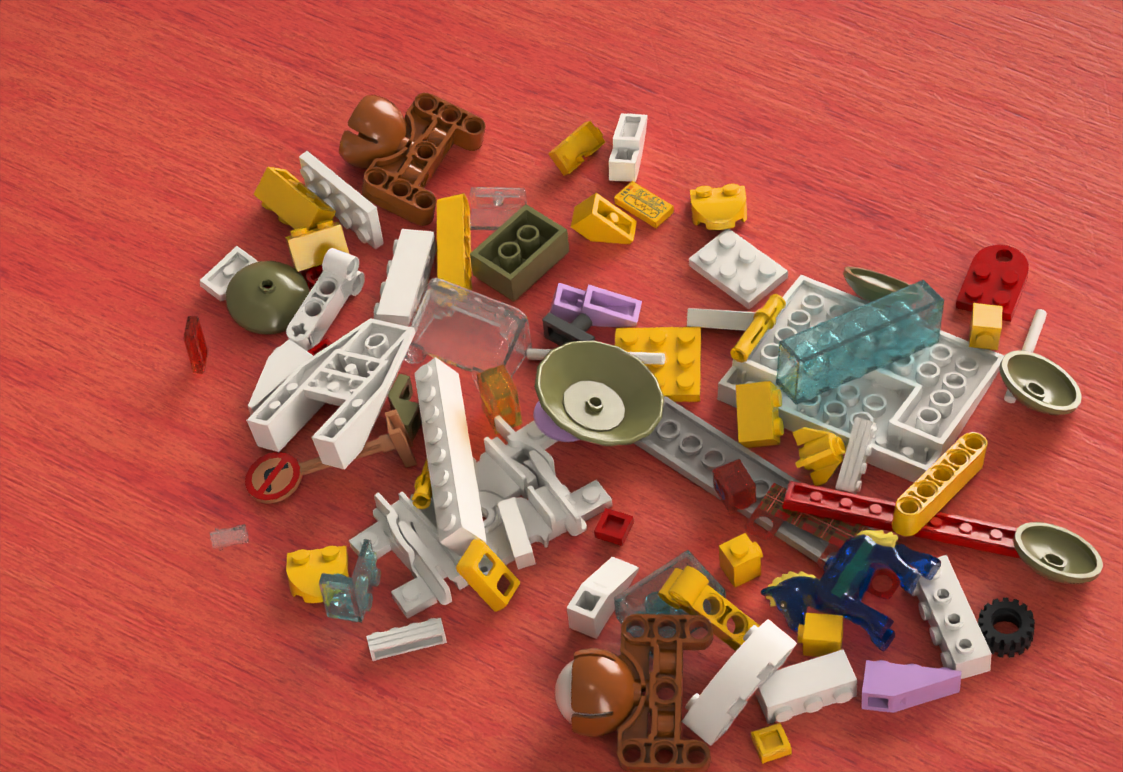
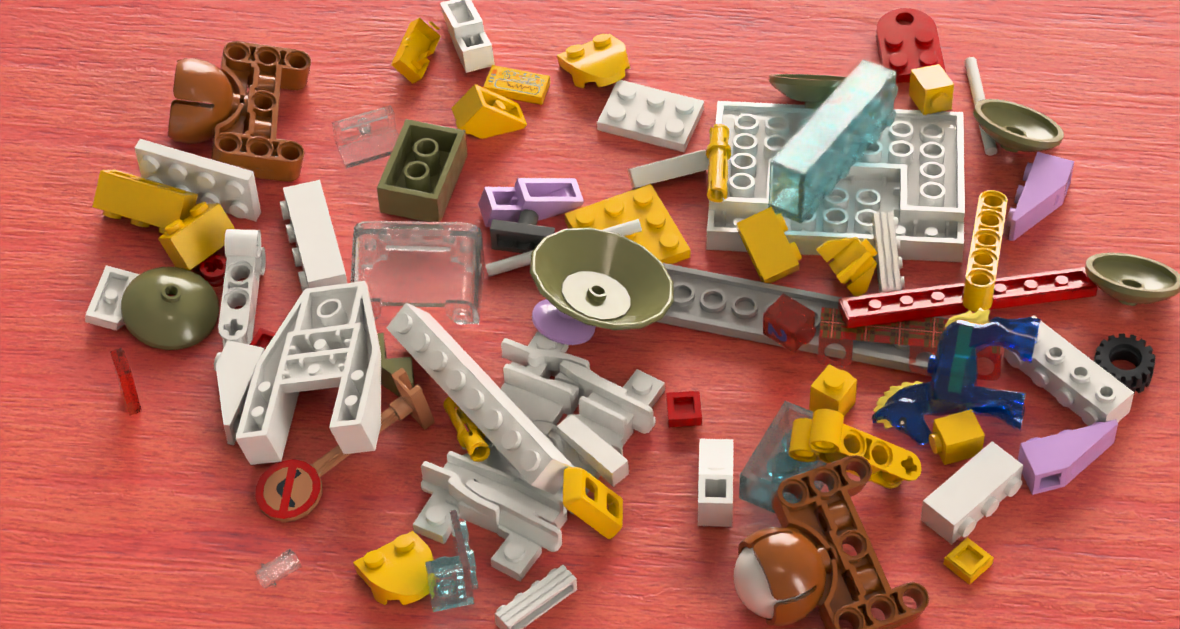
camera: 30 degrees left, 0 degrees up
(454, 240) = (341, 181): yellow beam -> none
(499, 396) = (491, 319): clear yellow brick -> none
(746, 670) = (915, 508): white brick -> none
(1029, 450) = (1043, 192): none -> lavender slope

